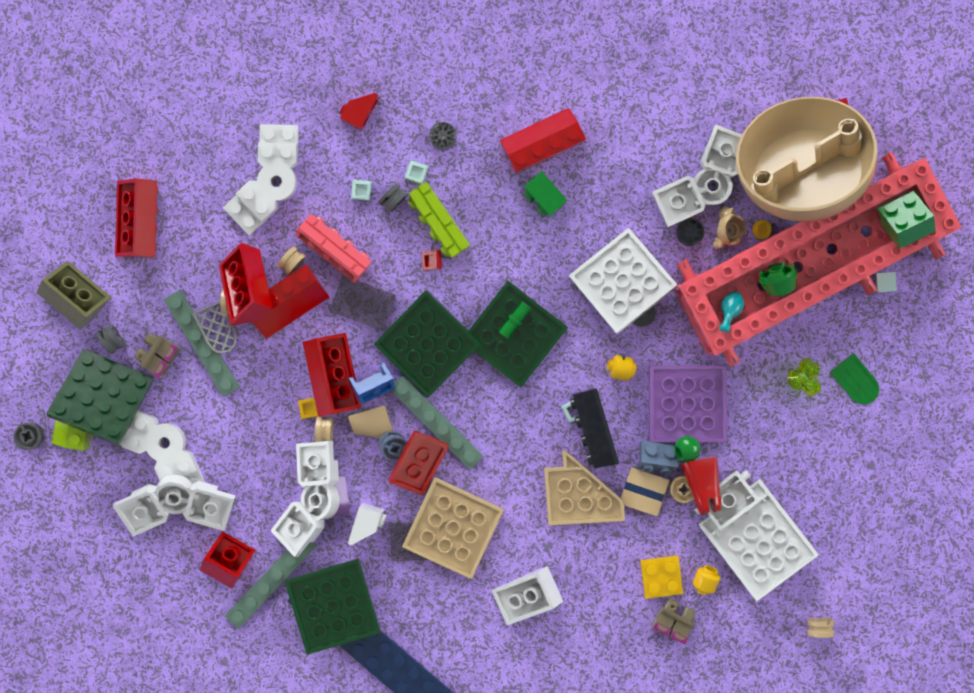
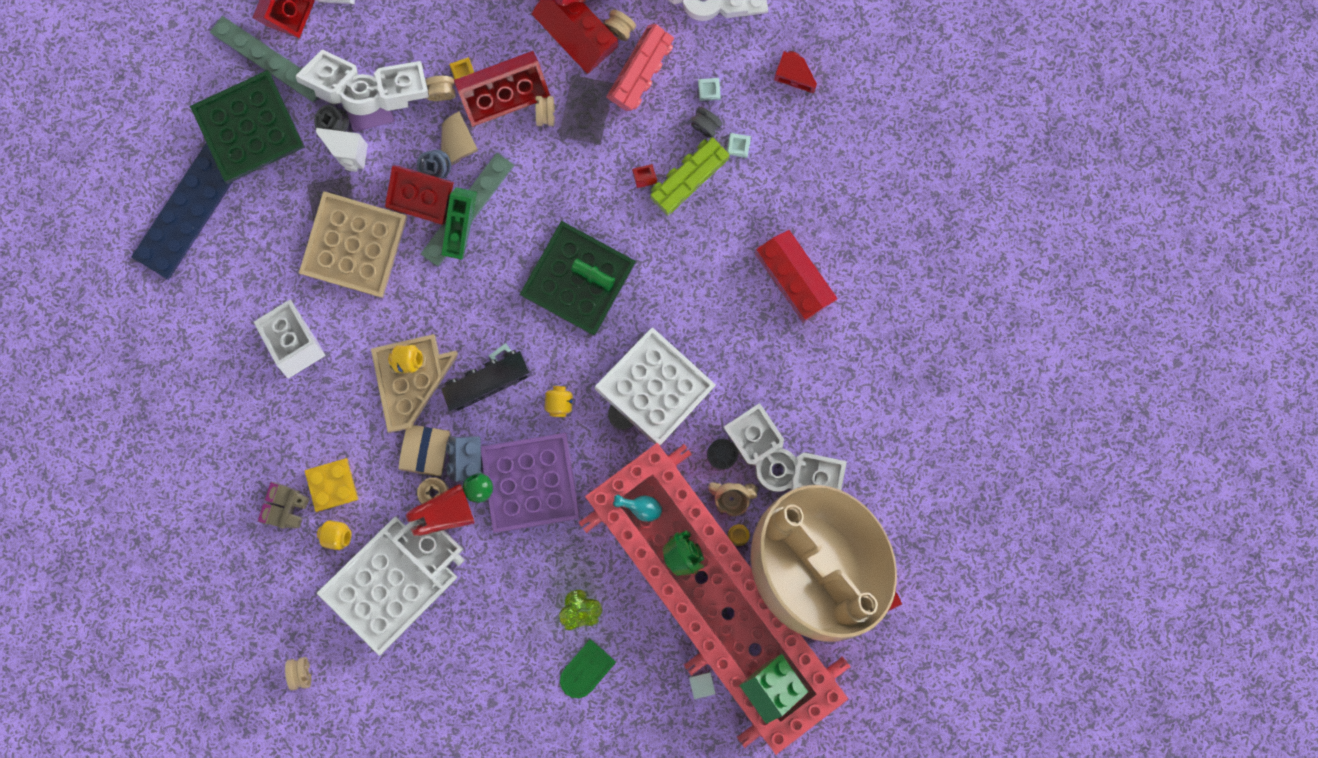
camera: 80 degrees right, 5 degrees down
(338, 532) = (331, 118): none -> dark grey wheel
(359, 339) = (544, 111): none -> tan wheel
(373, 386) = (495, 132): panel -> none
(427, 343) = (552, 184): dark green plate -> none
(442, 136) = (782, 166): dark grey wheel -> none
(449, 431) = (458, 222): none -> green slope
(544, 195) = (736, 284): green brick -> none
(564, 495) = (405, 358): none -> yellow head

